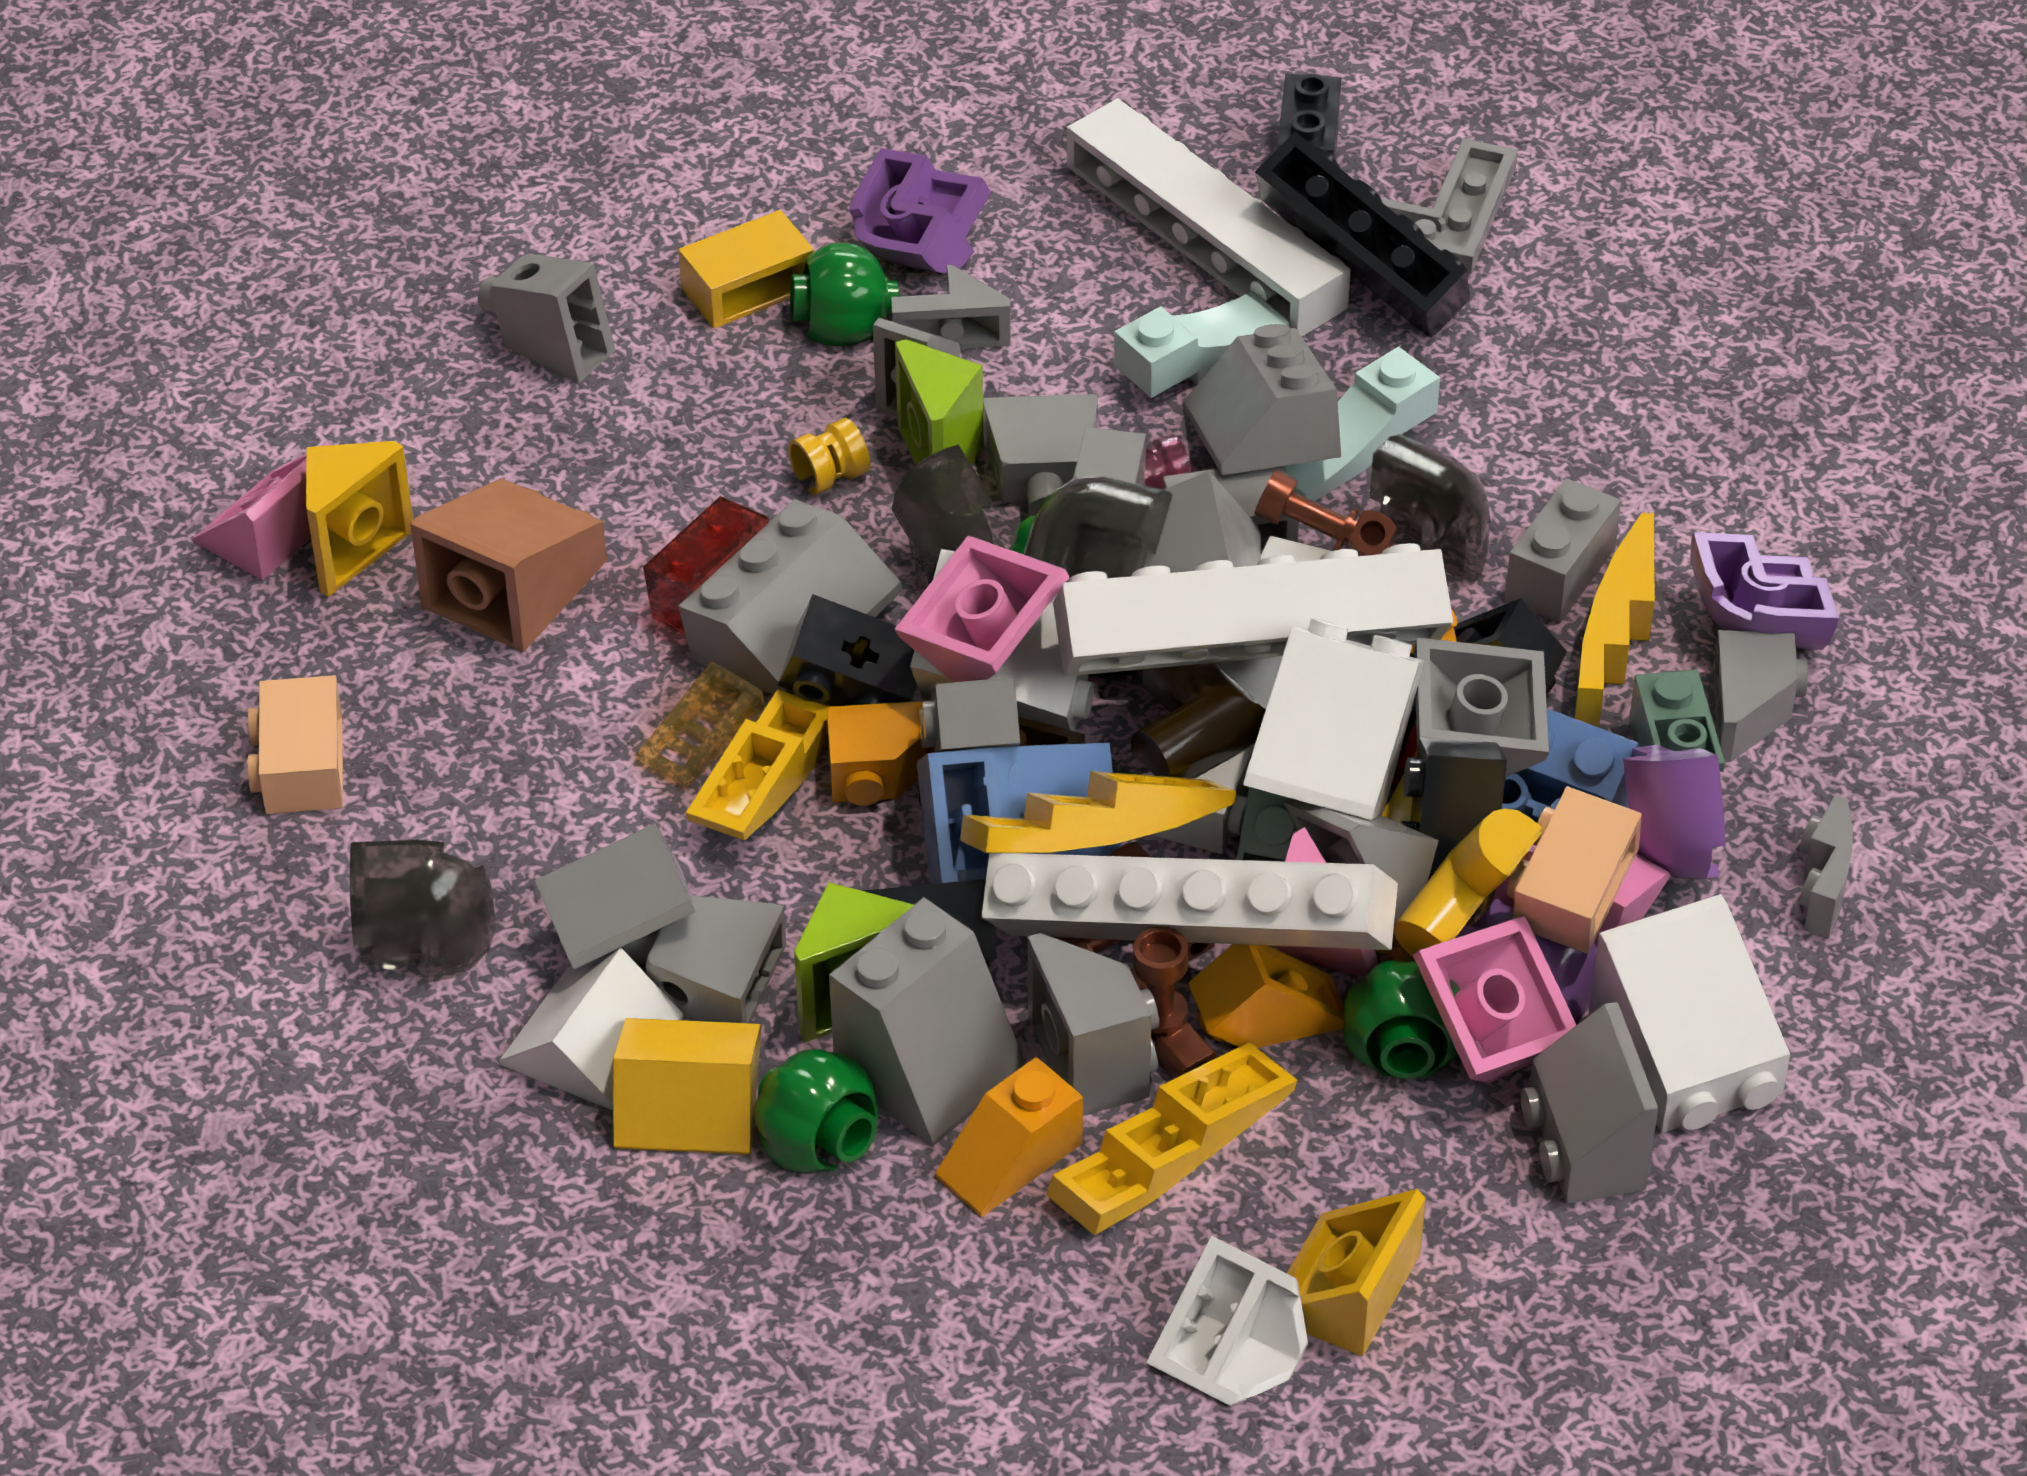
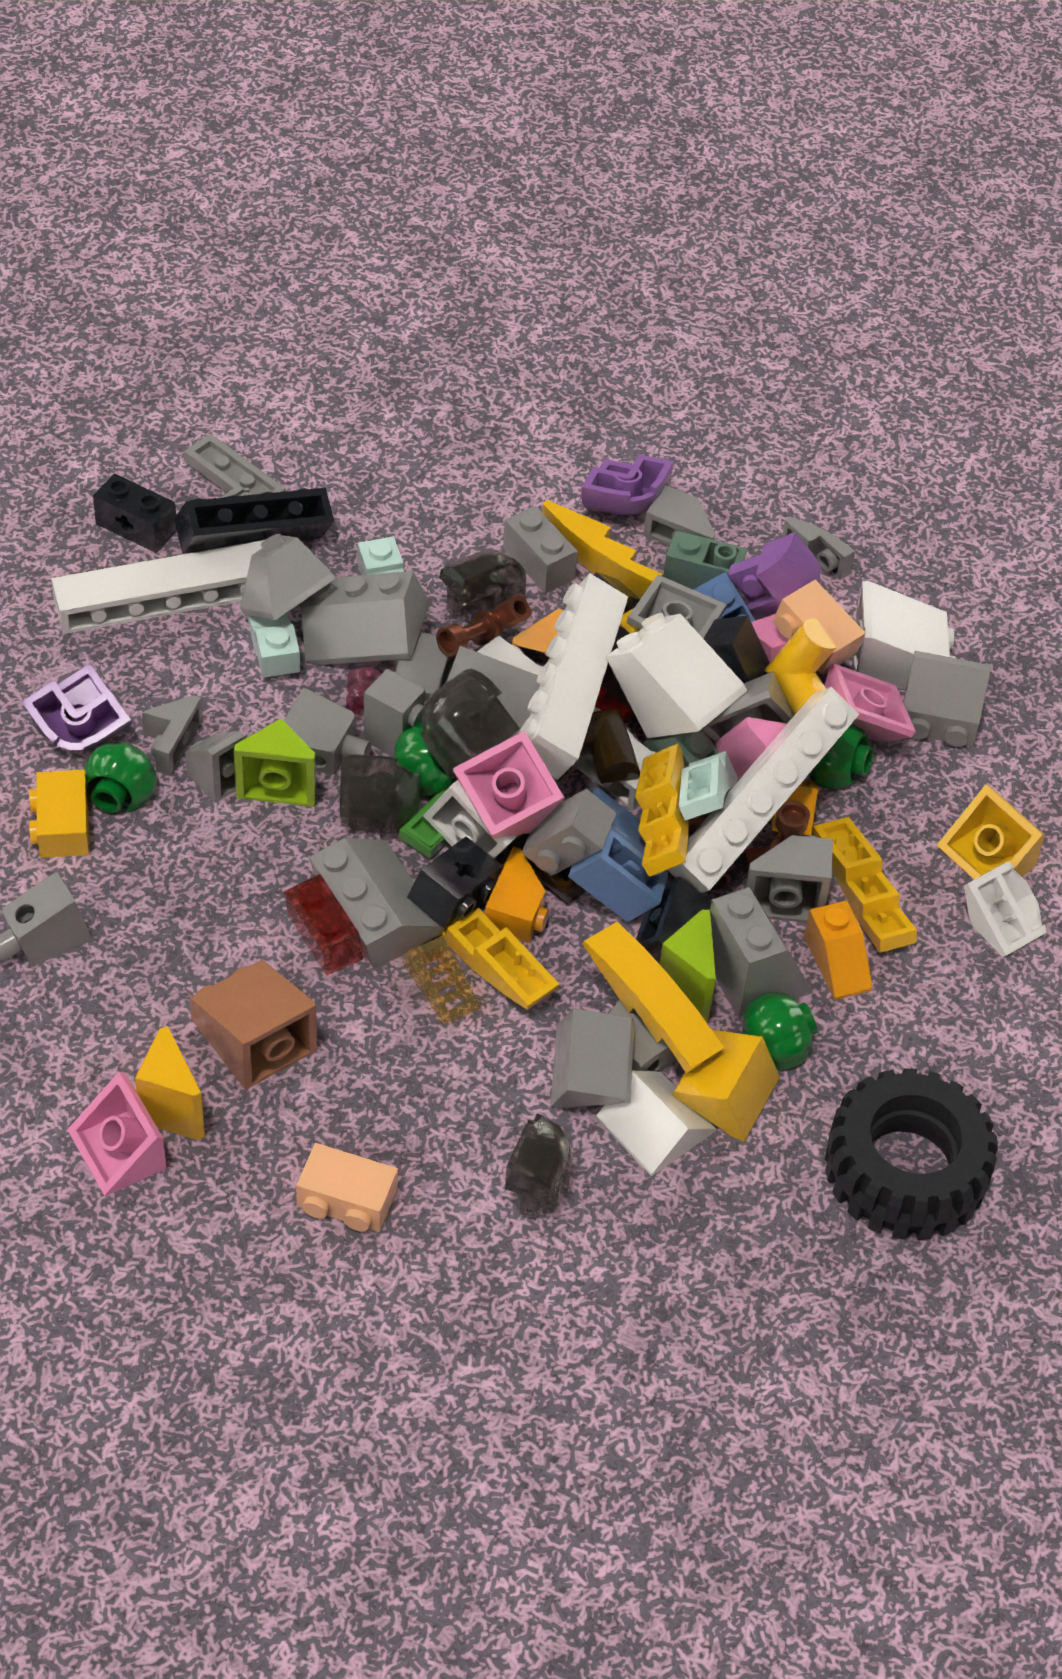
camera: 70 degrees left, 5 degrees up
(676, 1395) = (902, 1198): none -> black tyre
(747, 917) = (654, 996): none -> yellow slope
(830, 455) = (256, 829): yellow wheel -> none
(1155, 833) = (706, 785): none -> light aqua slope
(1261, 285) = (282, 577): none -> light grey slope

